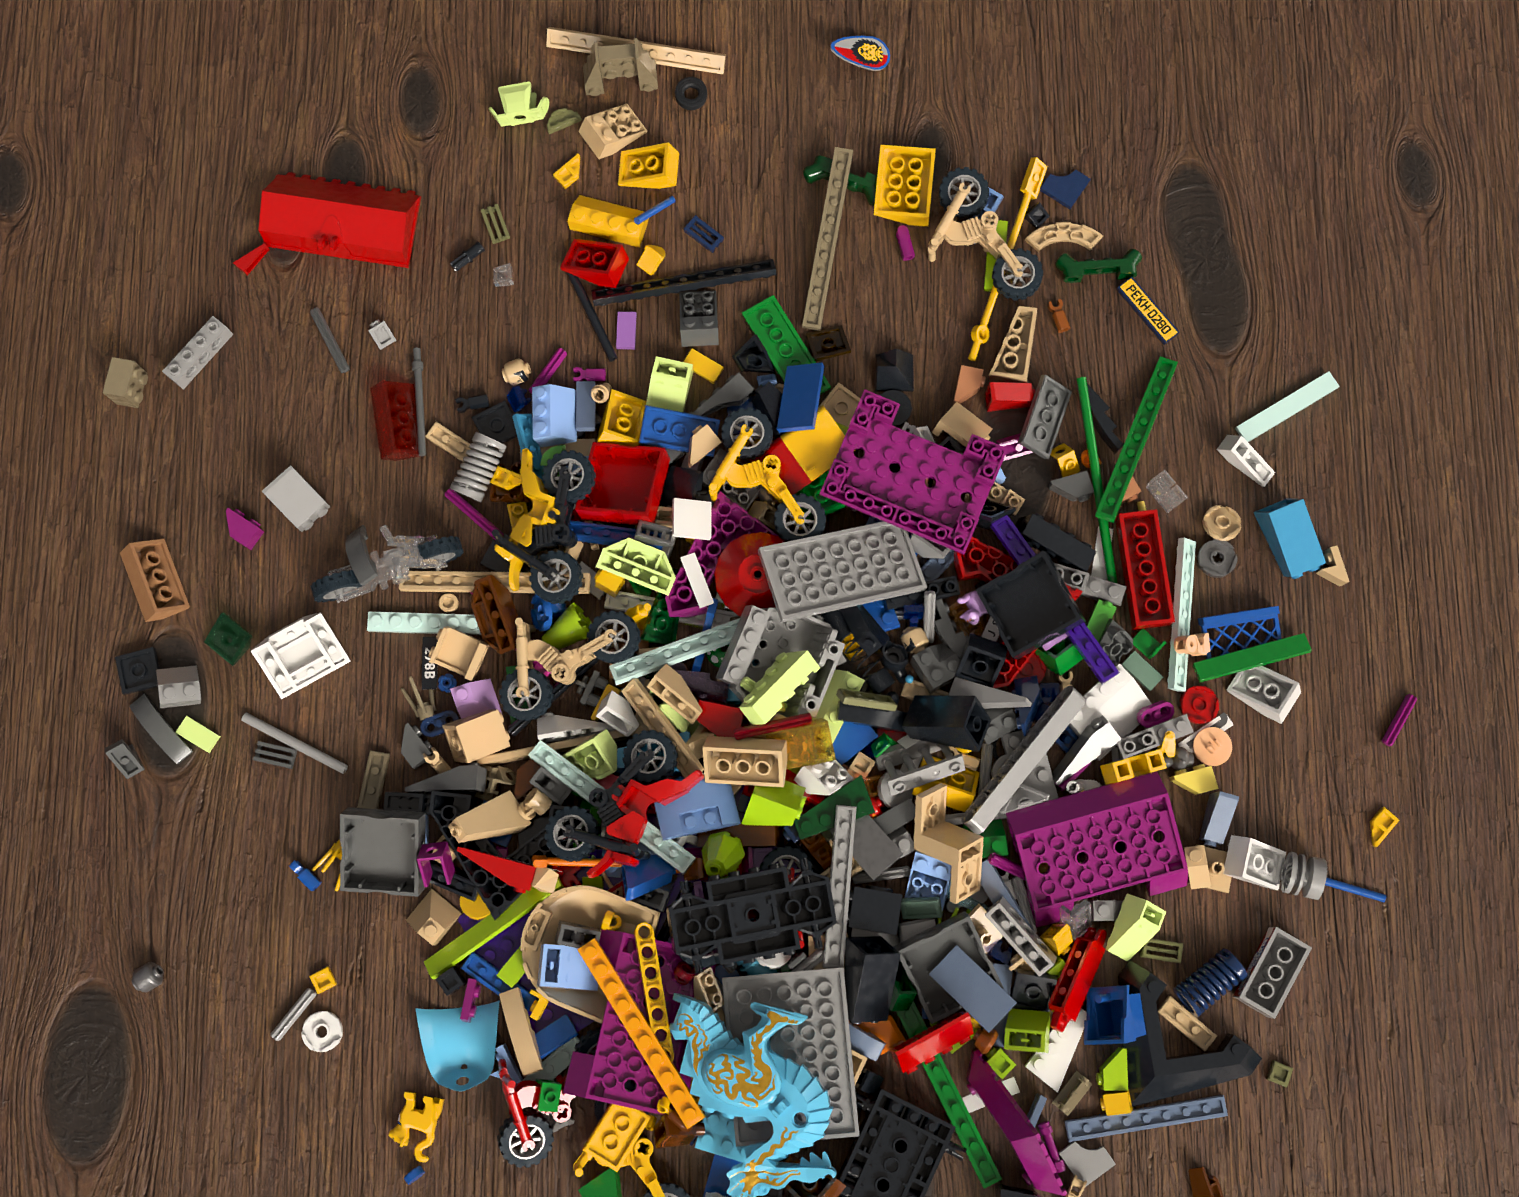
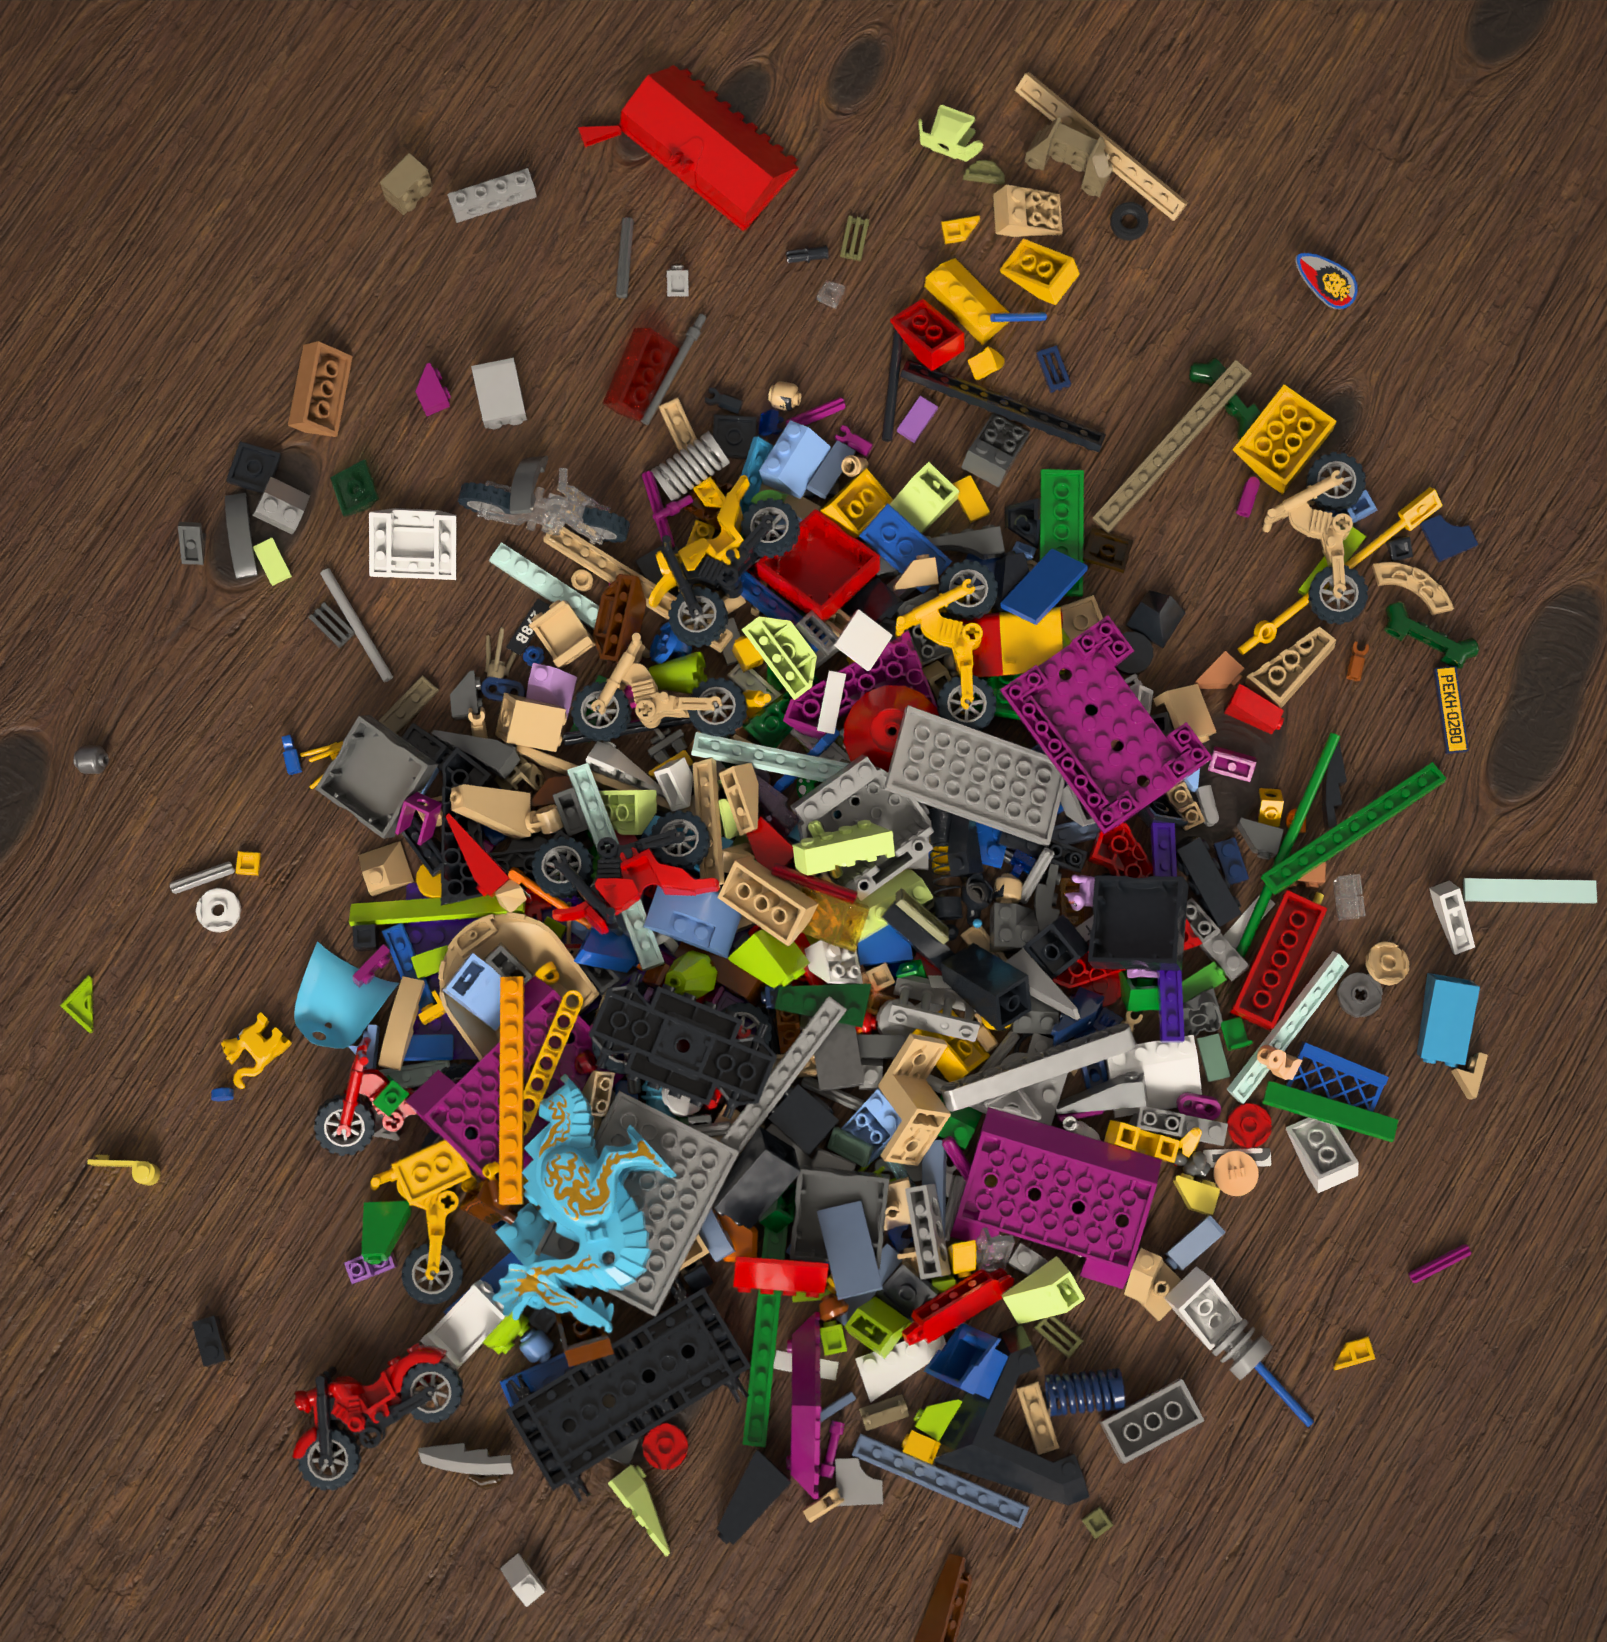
camera: 30 degrees right, 0 degrees up
(258, 1175) = (80, 1004): none -> lime tile
(484, 506) = (672, 508): none -> magenta bar
(1019, 486) = (1207, 805): none -> light grey bar
(1044, 417) = (1276, 752): dark grey tile -> none
(1061, 516) = (1231, 861): none -> dark blue plate

